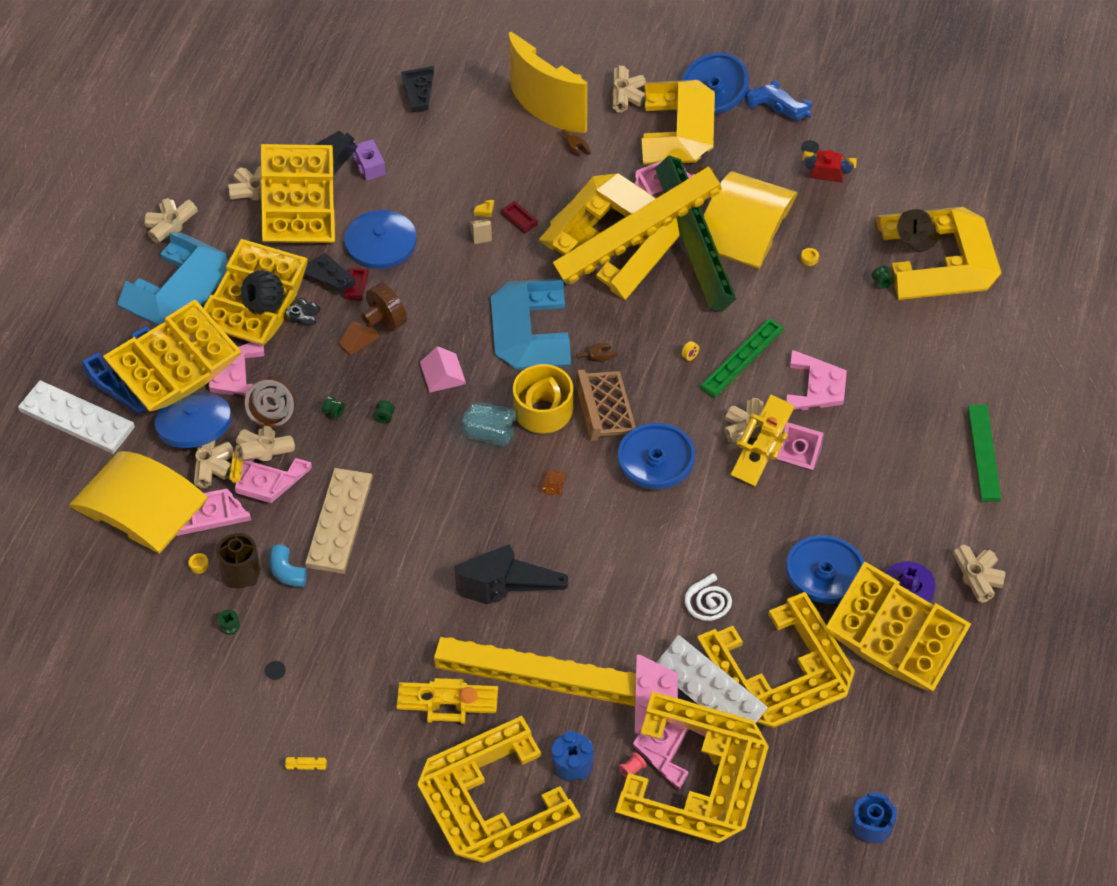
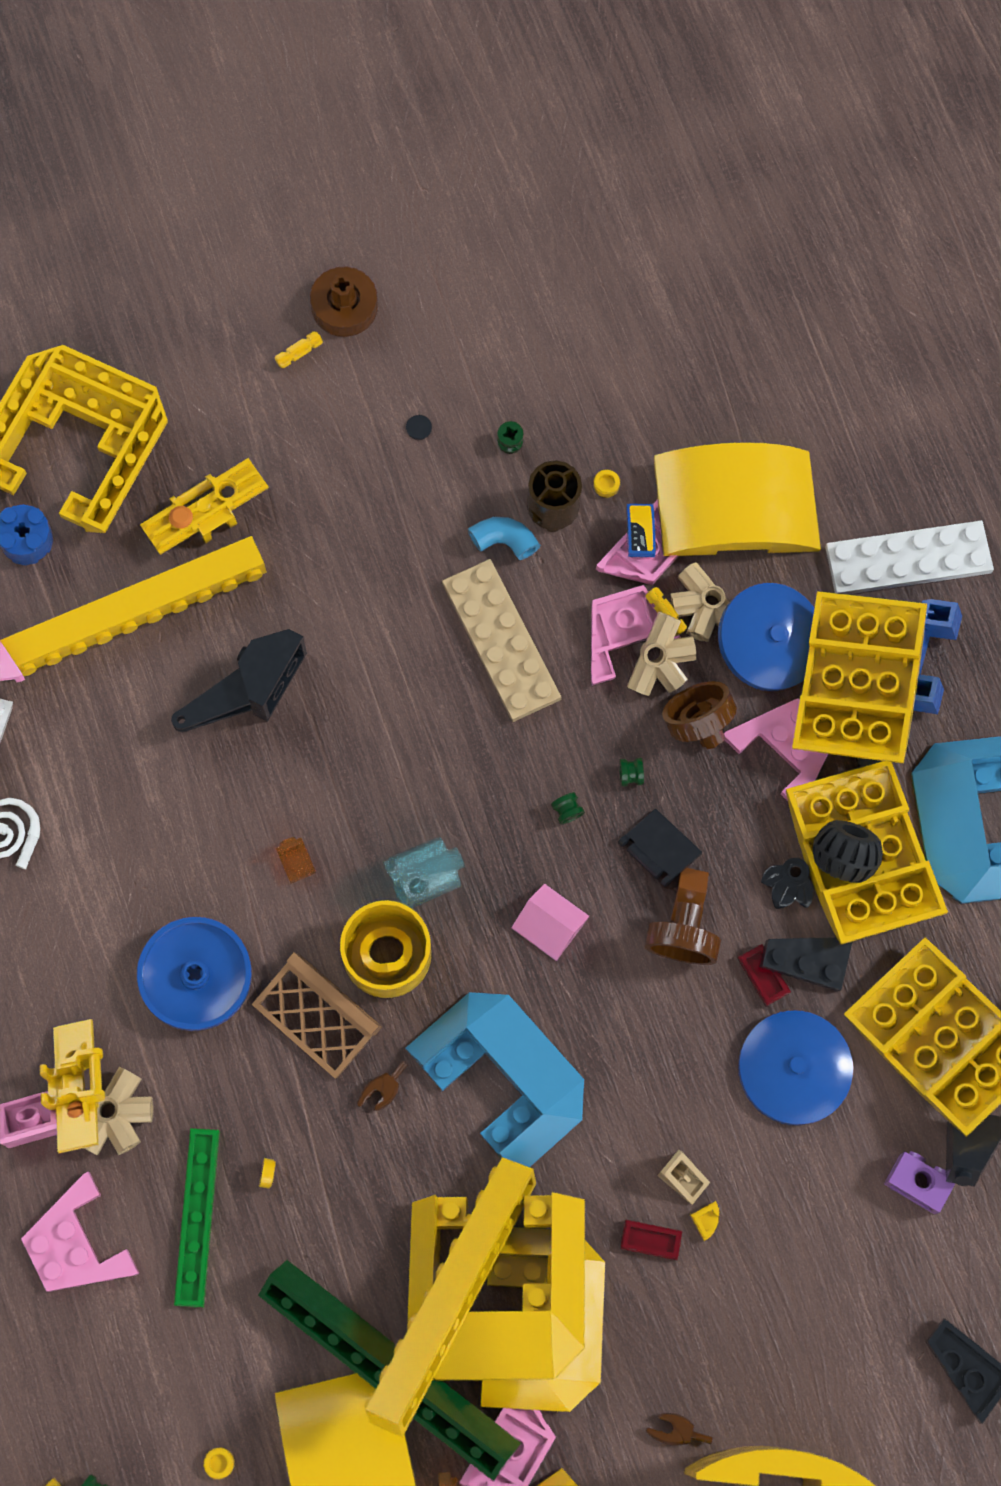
camera: 140 degrees right, 20 degrees up
(206, 514) = (640, 530): none -> slope
(246, 763) = (342, 288): none -> reddish brown piece
(352, 366) = (660, 847): none -> black piece

